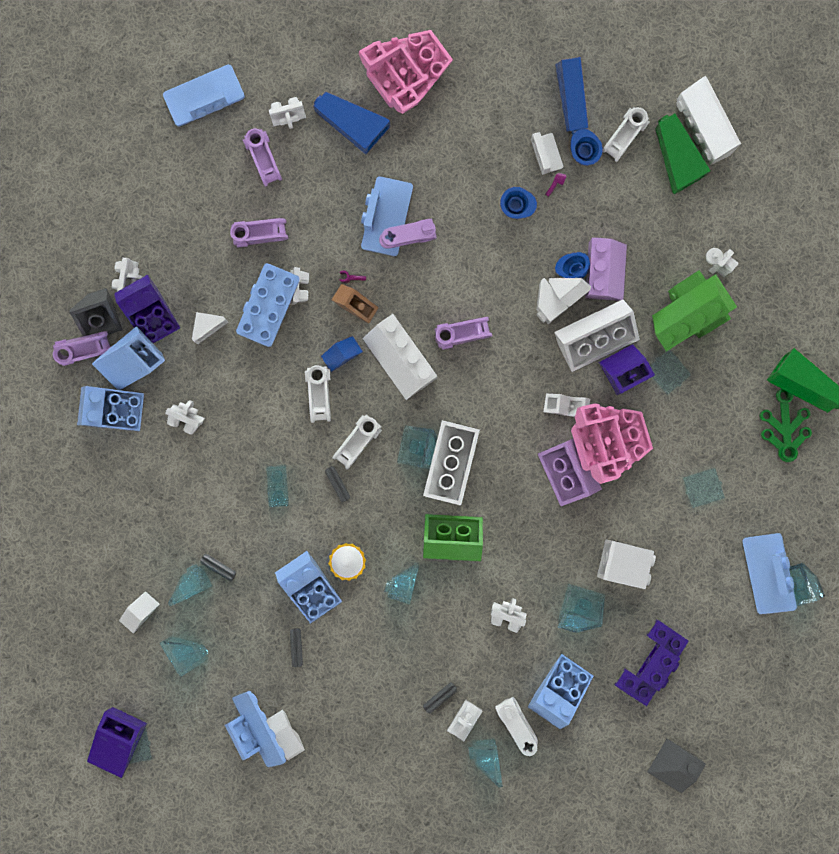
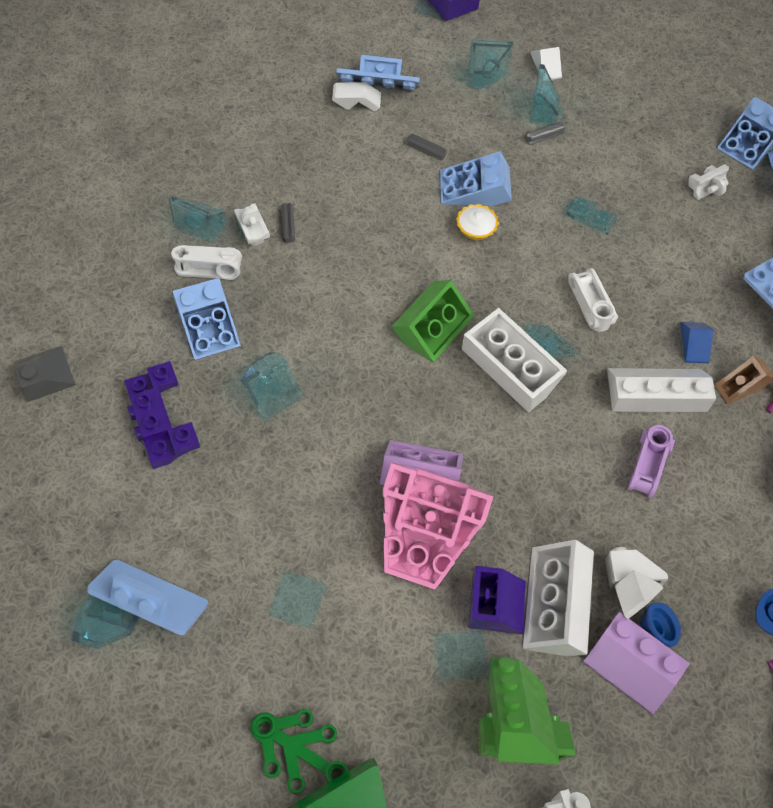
camera: 120 degrees right, 25 degrees down
(318, 394) = (665, 295): white piece -> none
(337, 484) = (559, 261): dark grey axle -> none
(402, 584) = (418, 251): clear light blue slope -> none
(508, 612) = (319, 320): white hips -> none
(564, 404) = (501, 512): white slope -> none
(626, 564) = (281, 452): white slope -> none

